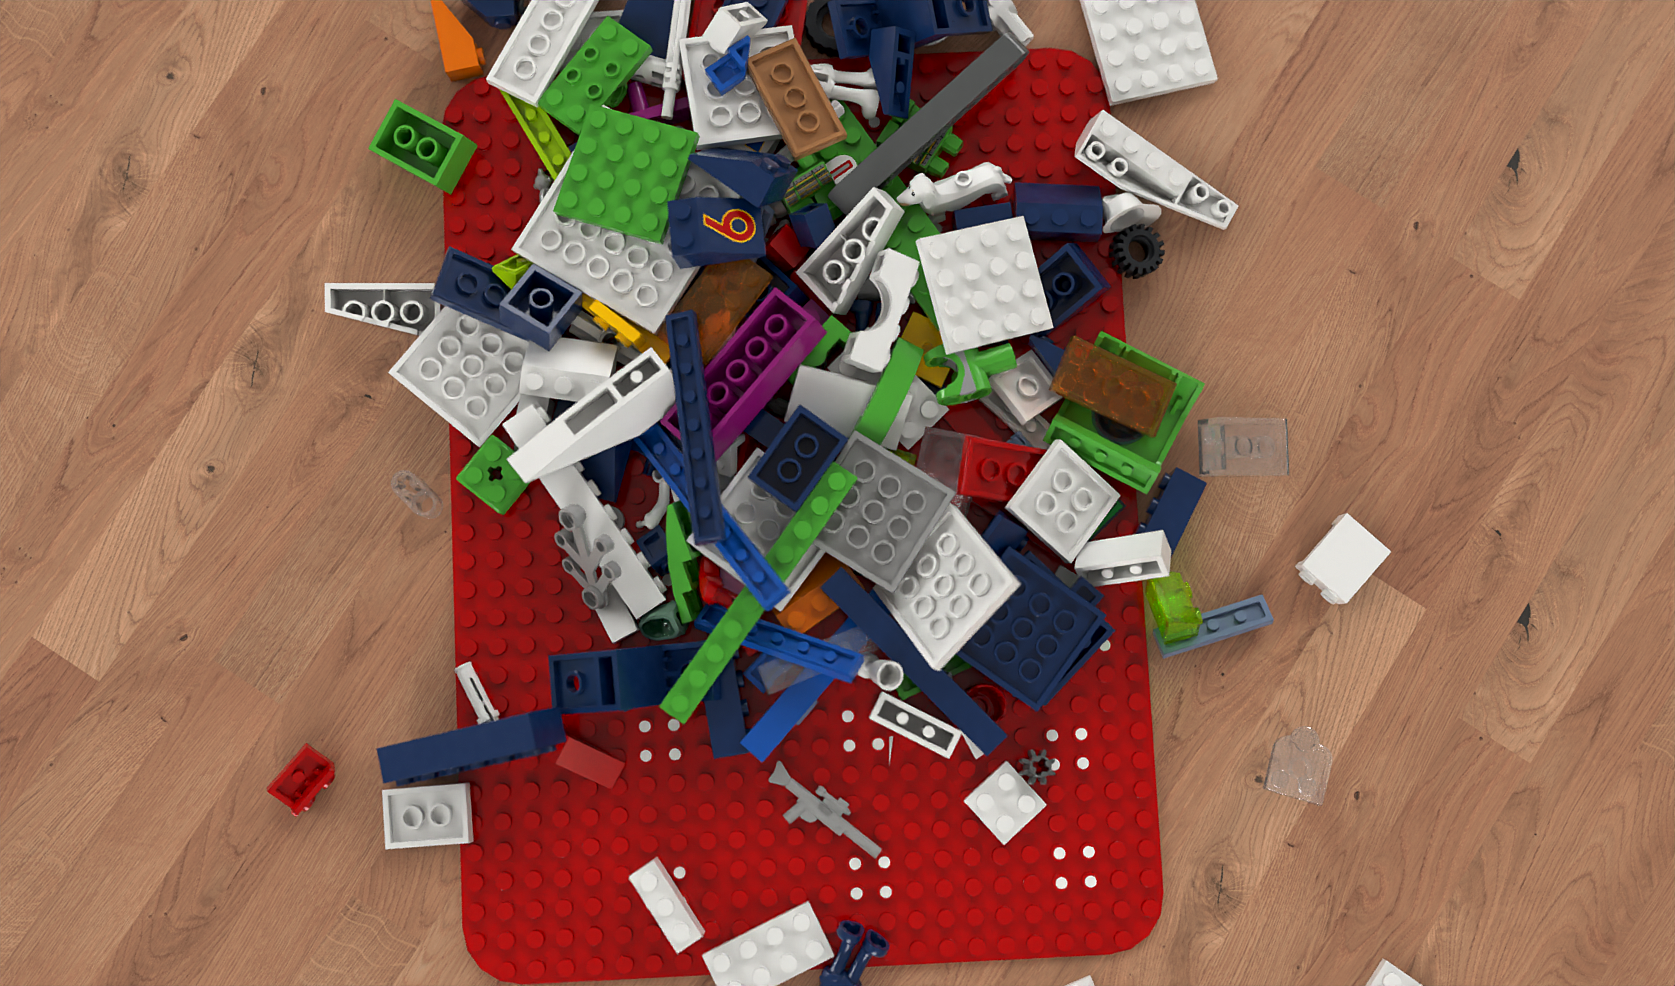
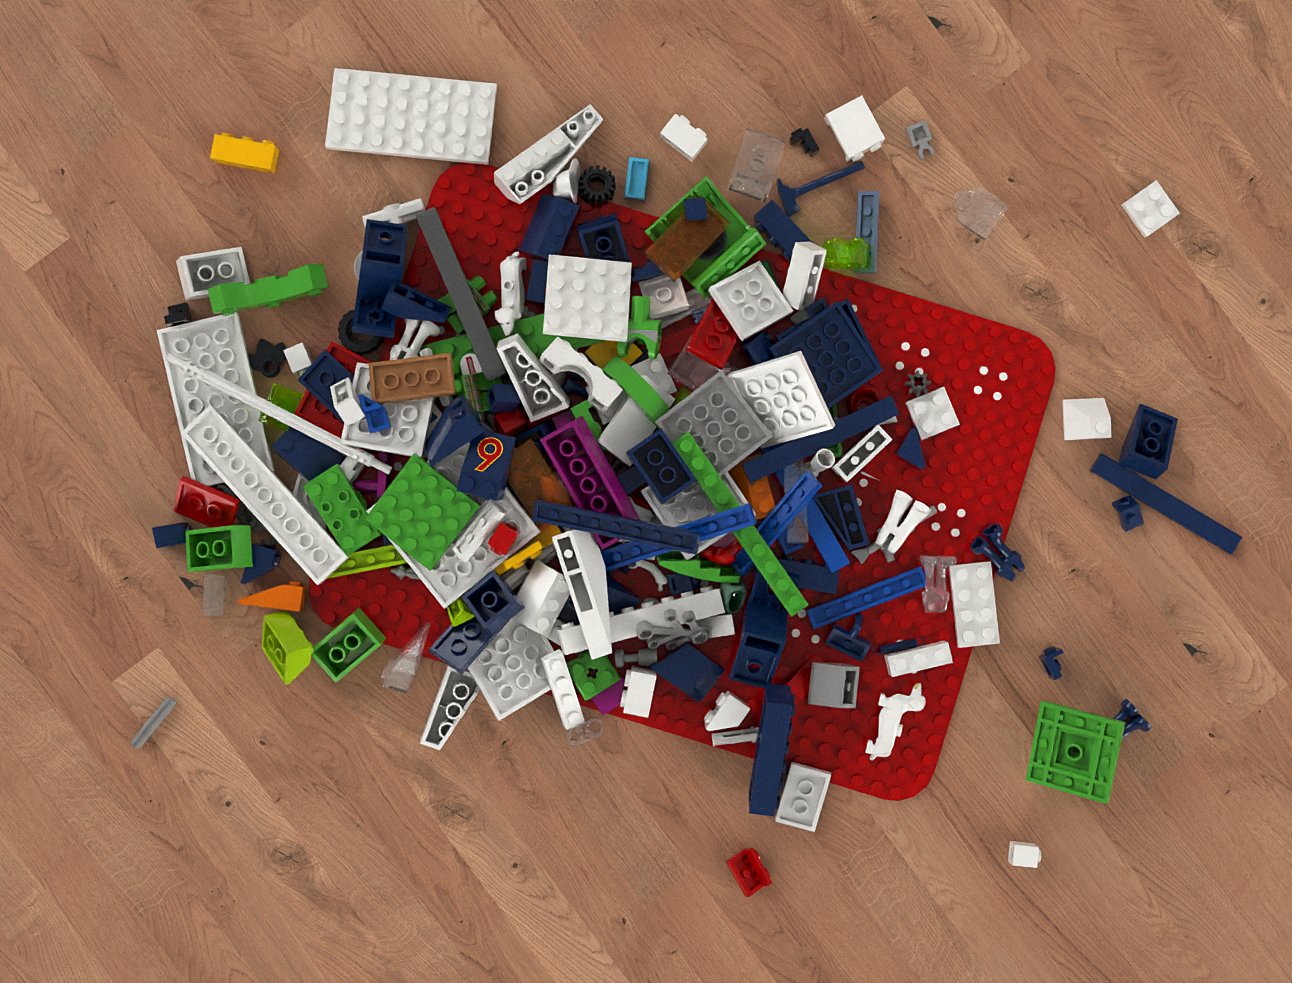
camera: 70 degrees left, 5 degrees up
(395, 69) = (285, 645): none -> lime slope
(423, 231) = (402, 670): none -> clear slope
(460, 442) = (562, 689): none -> white plate
(472, 509) = (609, 697): none -> magenta tile
(489, 541) = (640, 690): none -> white brick
(501, 672) = (728, 712): none -> white slope
(541, 535) = (644, 657): none -> light grey piece
(542, 601) = (689, 671): none -> dark blue slope
(572, 895) = (890, 718): none -> white animal
(590, 801) = (833, 685): none -> light grey slope
(625, 252) = (478, 531): none -> white plate
(628, 287) = (503, 538): none -> red brick
(657, 802) = (849, 641): none -> dark blue plate
(675, 871) = (898, 646): none -> dark blue piece
(726, 805) = (866, 597): none -> blue tile
(760, 902) = (936, 598): none -> clear piece
(824, 733) = (844, 514): none -> dark blue wedge
(864, 803) = (899, 506): none -> white piece
(944, 790) = (910, 450): none -> dark blue slope
(1155, 382) = (695, 209): none -> dark blue tile
(1165, 301) = (636, 178): none -> medium azure tile
(1220, 506) = (789, 195): none -> dark blue piece
(1243, 340) = (684, 137): none -> white brick
(1298, 505) = (808, 143): none -> black bracket
(1366, 650) = (919, 136): none -> light grey plate

